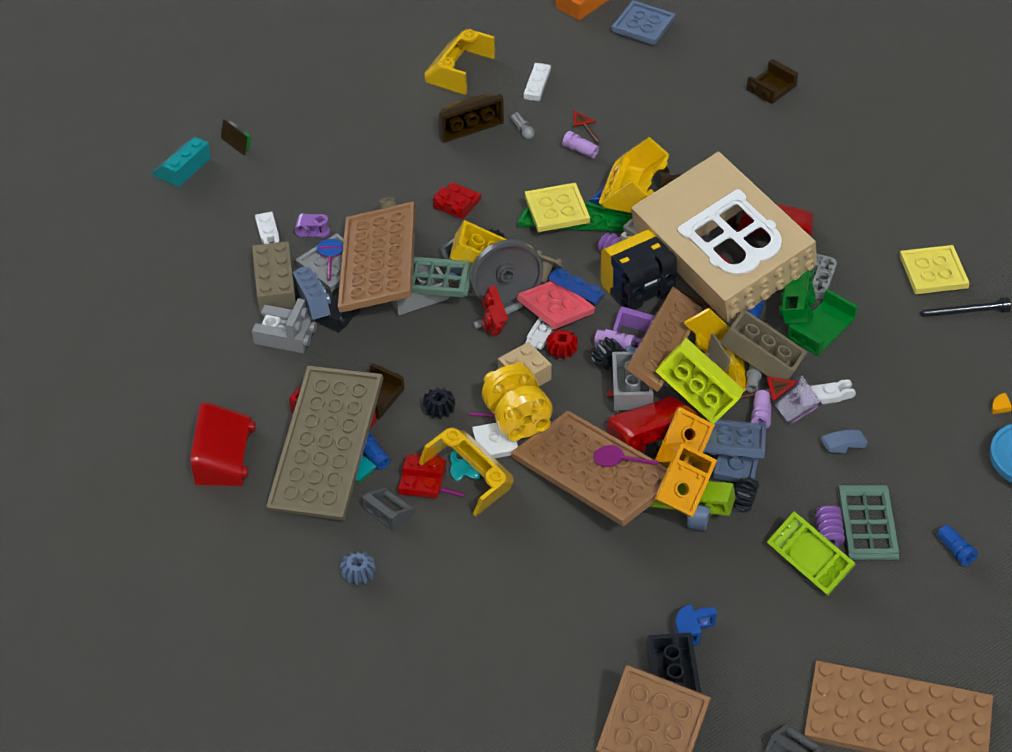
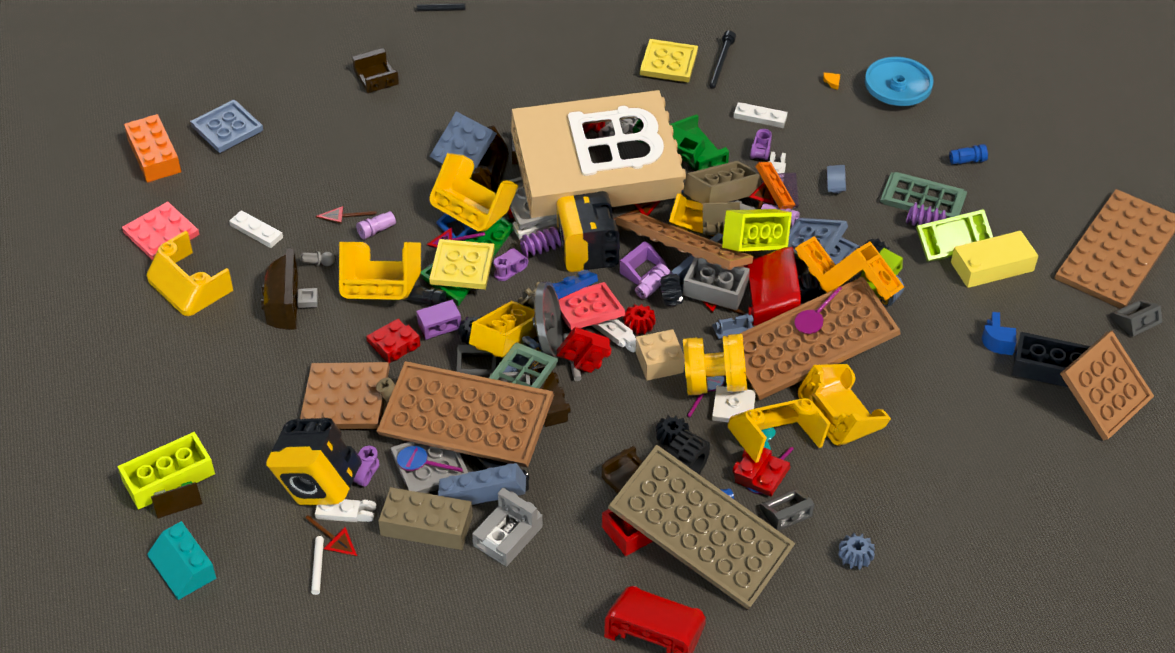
camera: 70 degrees left, 0 degrees up
(209, 234) = (317, 565): none -> white bar
(237, 240) = (340, 543): none -> piece
(261, 121) = (166, 469): none -> neon yellow brick
(284, 186) = (314, 461): none -> piece
(371, 185) = (345, 394): none -> medium nougat plate
(400, 413) = (690, 450): none -> black tyre
(438, 312) = (559, 408): none -> dark brown brick
(475, 135) = (307, 297): none -> light grey plate
(488, 214) = (440, 317): none -> medium lavender brick
(508, 31) = (157, 228): none -> coral plate
(513, 159) = (377, 279): none -> yellow windscreen
(515, 202) = (429, 296): none -> black axle
(531, 515) = (831, 392): none -> yellow windscreen
(583, 240) = (509, 264): none -> medium lavender piece
(587, 192) = (447, 235): none -> piece
(590, 412) = (730, 326): none -> sand blue hinge
(699, 154) = (464, 138): none -> sand blue plate
(787, 387) = (775, 185): none -> orange tile
(802, 598) = (994, 259): none -> light yellow brick
(855, 370) = (761, 145): none -> medium lavender piece
(894, 95) = (435, 7): none -> black bar
(904, 361) = (760, 115): none -> white plate

